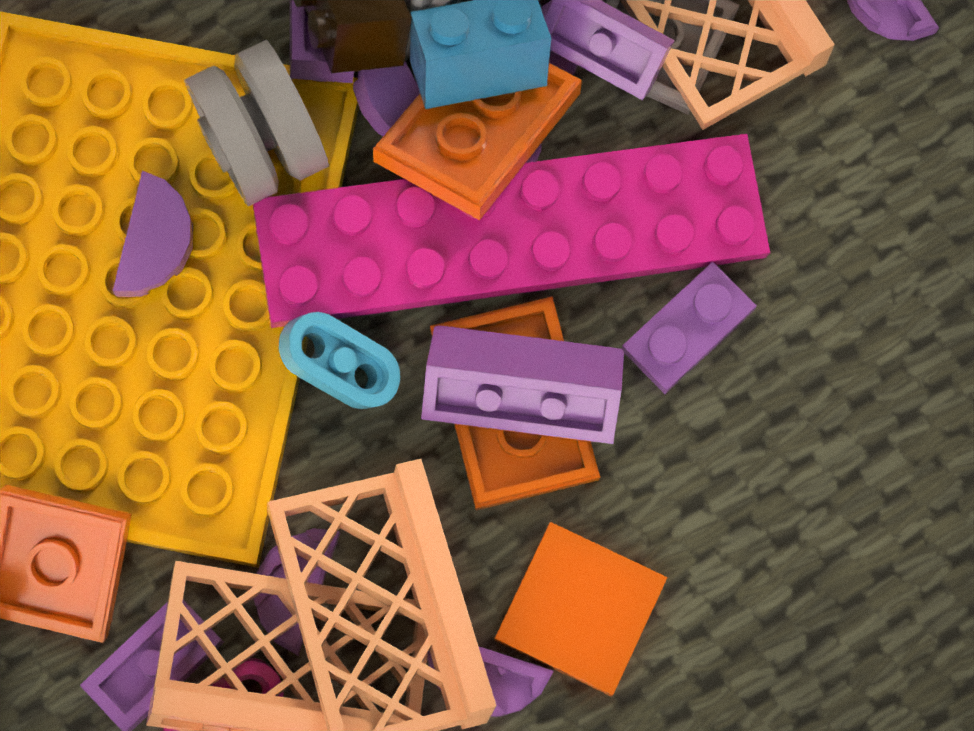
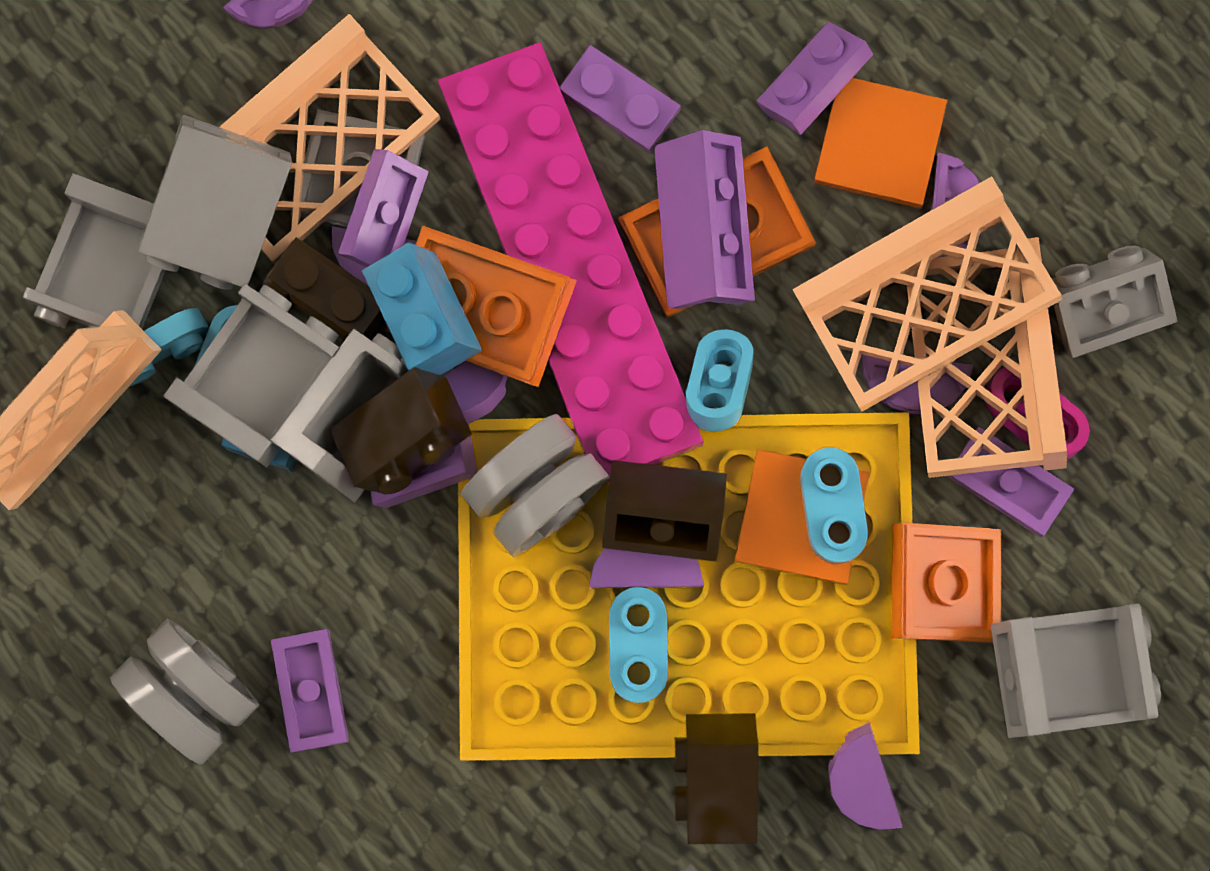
camera: 95 degrees left, 5 degrees up
(66, 212) = (638, 644): none -> medium azure plate
(160, 446) = (832, 505): none -> medium azure plate
(163, 415) = (775, 522): none -> orange tile
(200, 259) = (664, 510): none -> dark brown brick
(668, 547) = (814, 77): none -> medium lavender plate

